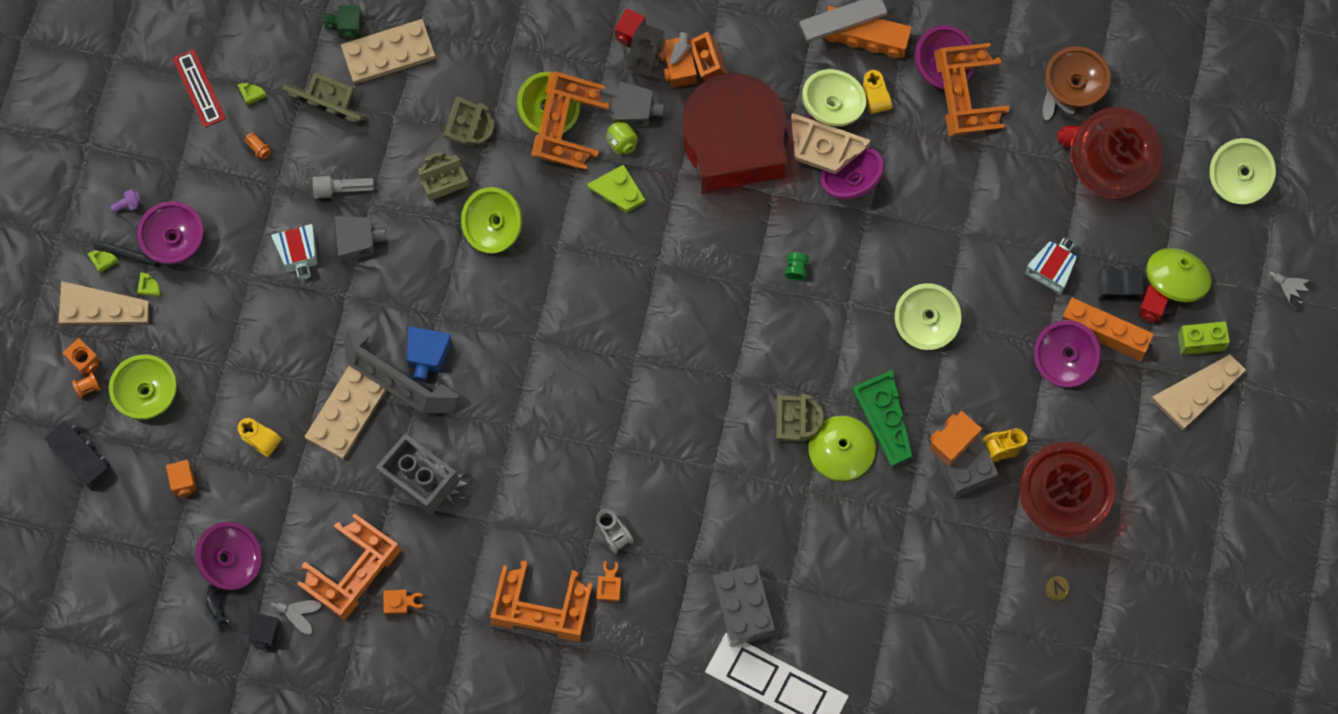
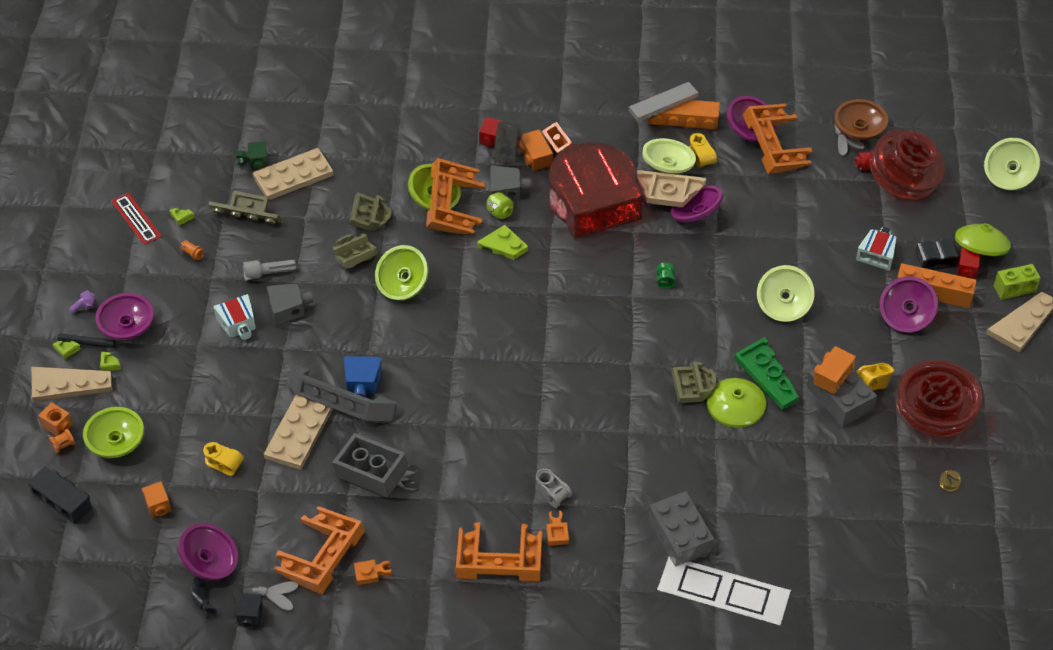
camera: 10 degrees left, 20 degrees down
(680, 48) = (536, 135): light grey bar -> none

